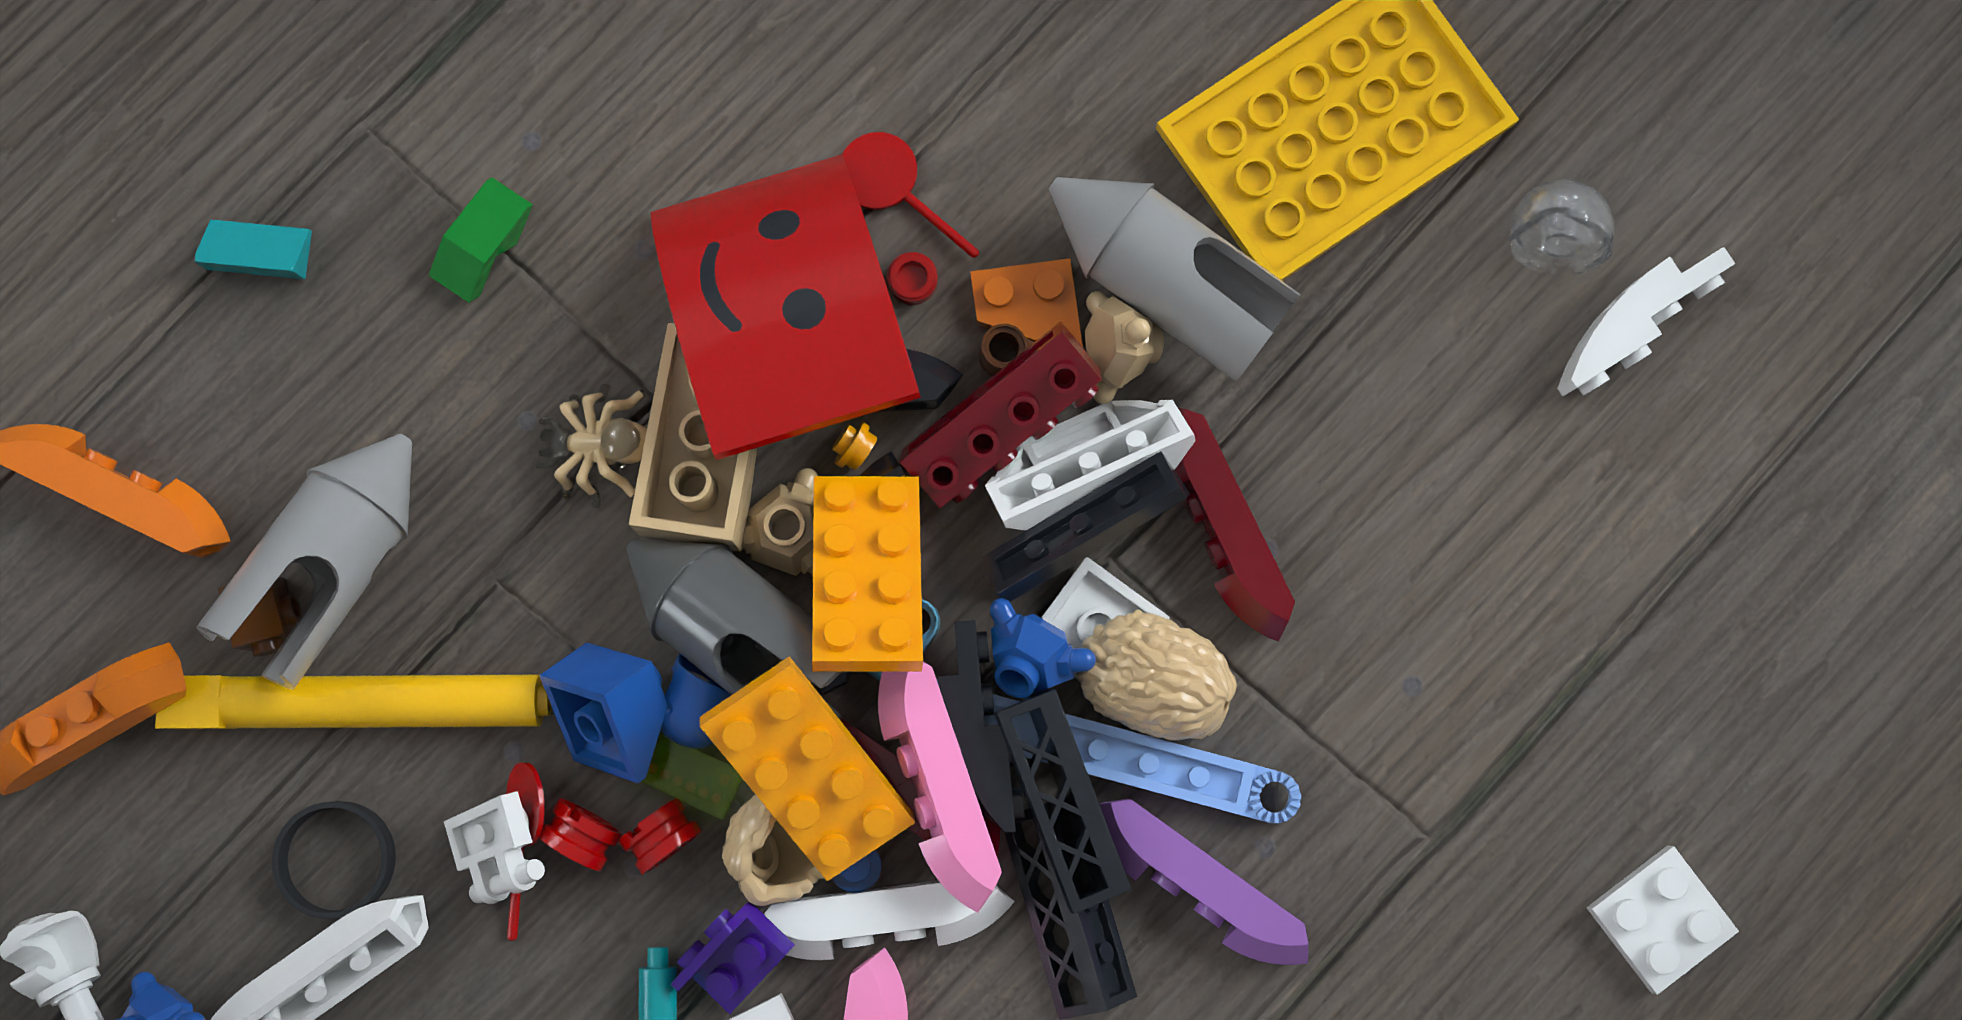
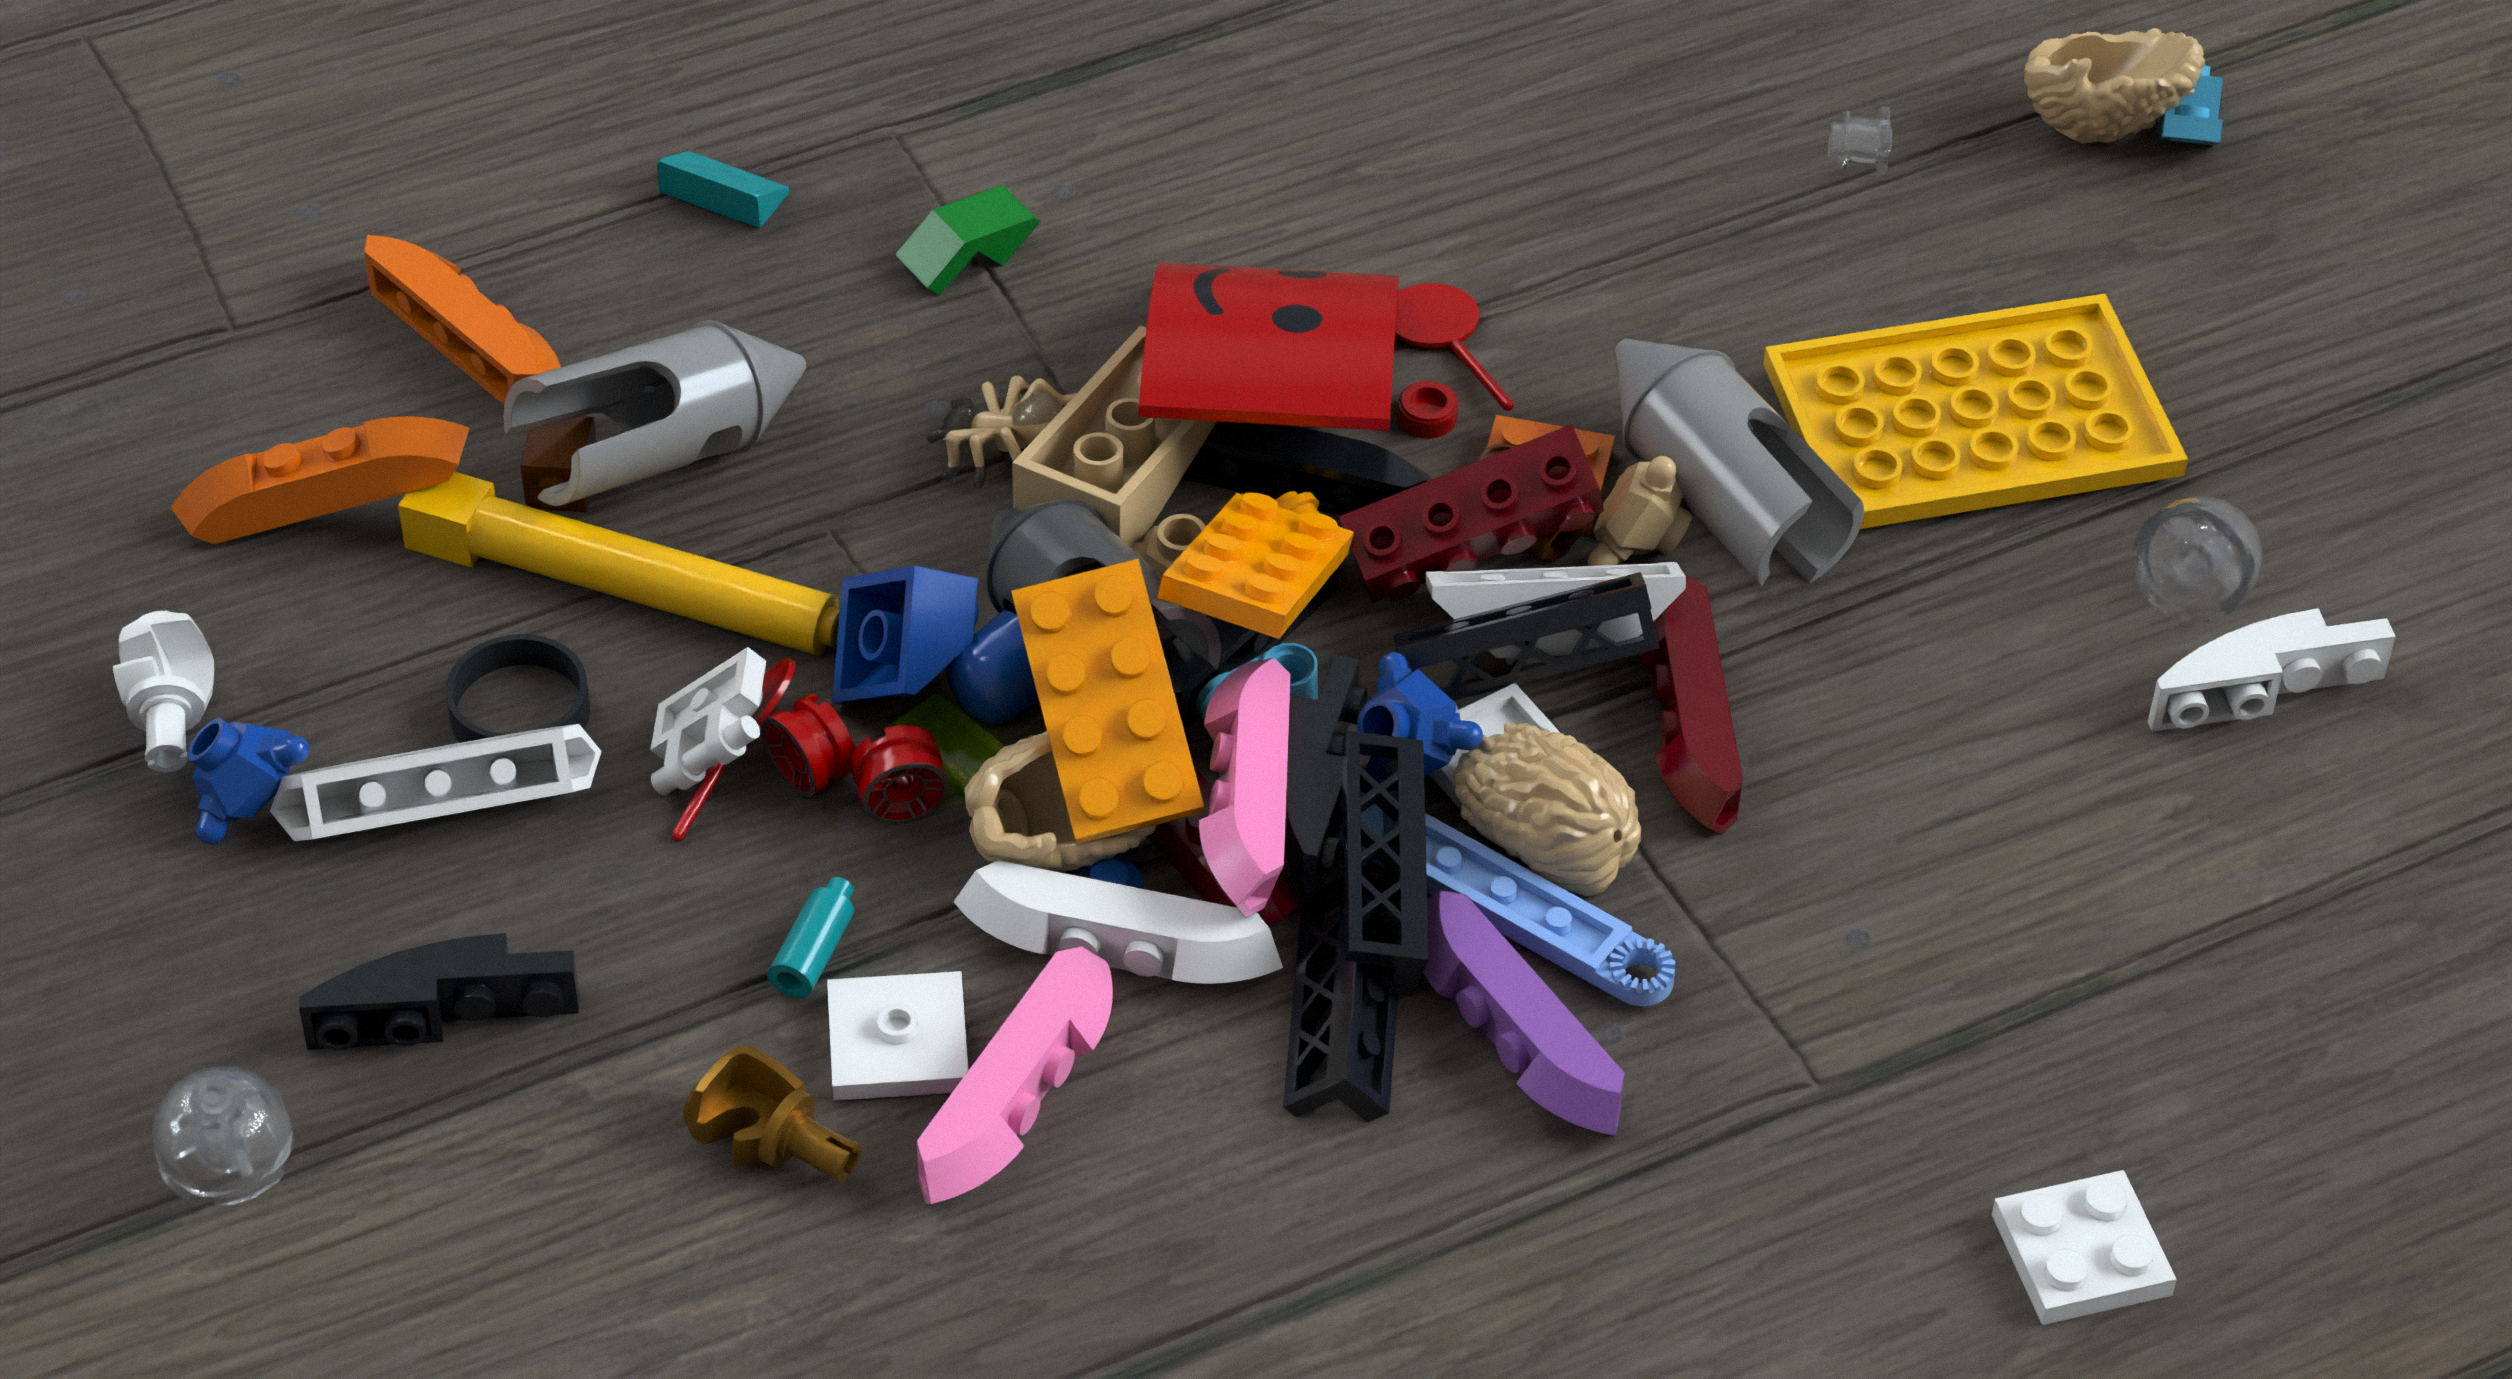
camera: 20 degrees right, 35 degrees down
(735, 958) = (925, 899): dark purple bracket -> none

